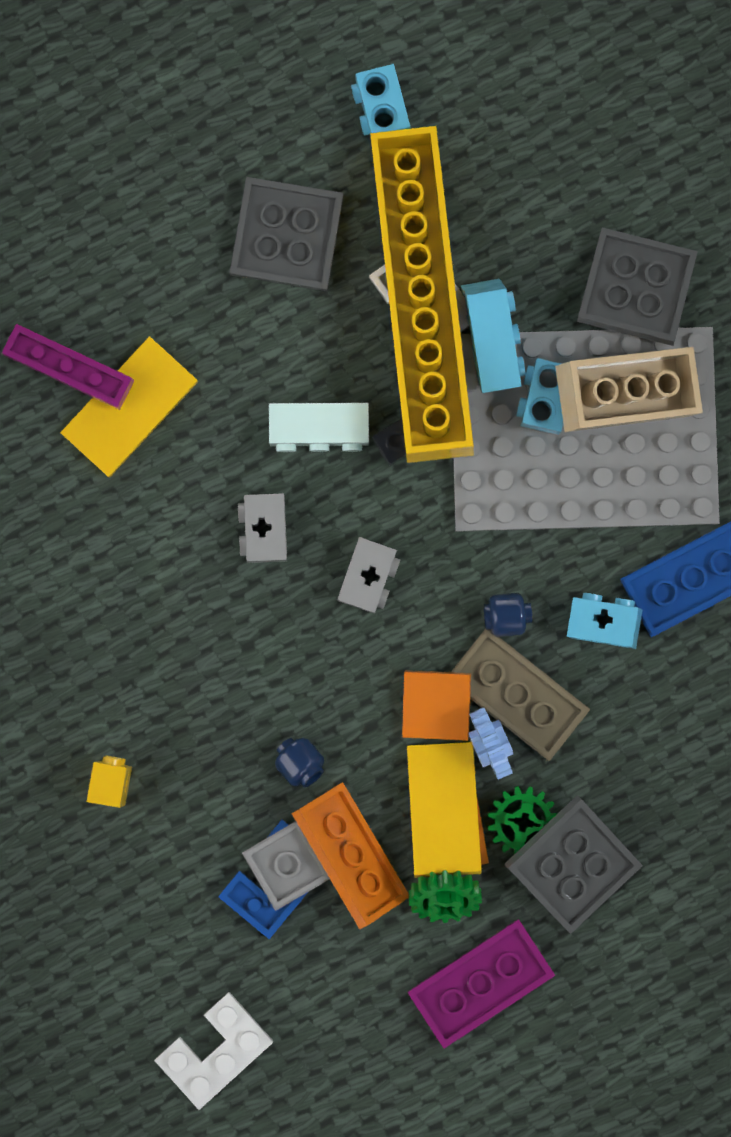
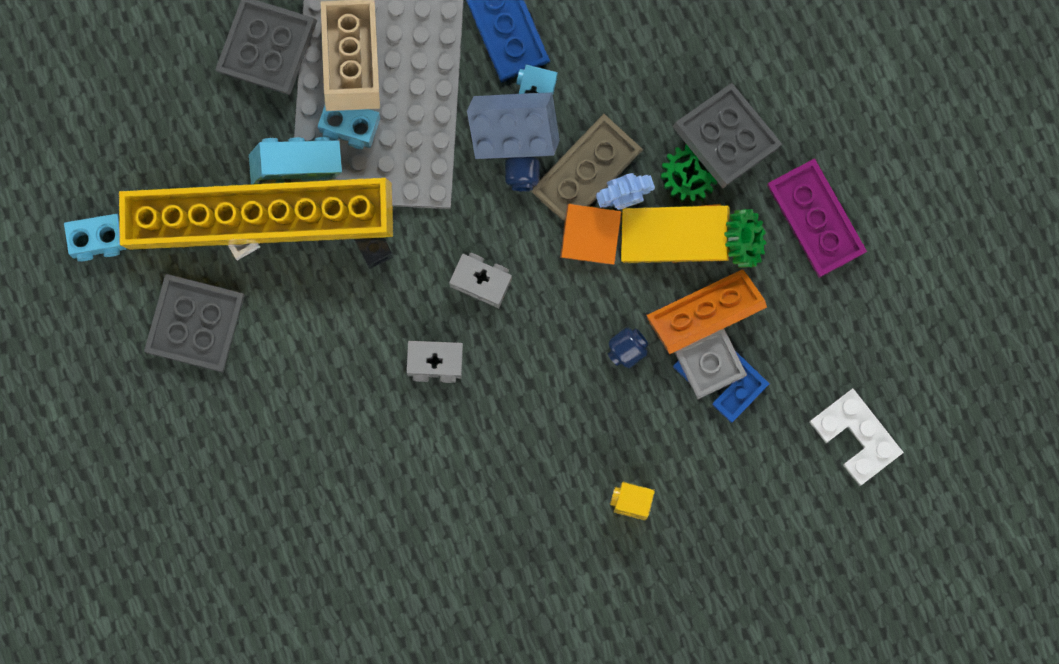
camera: 85 degrees left, 5 degrees down
(68, 366) = (286, 510): magenta plate -> none
(111, 434) = (324, 464): yellow tile -> none
(318, 426) = (355, 309): light aqua brick -> none
(559, 598) = (513, 125): none -> sand blue brick

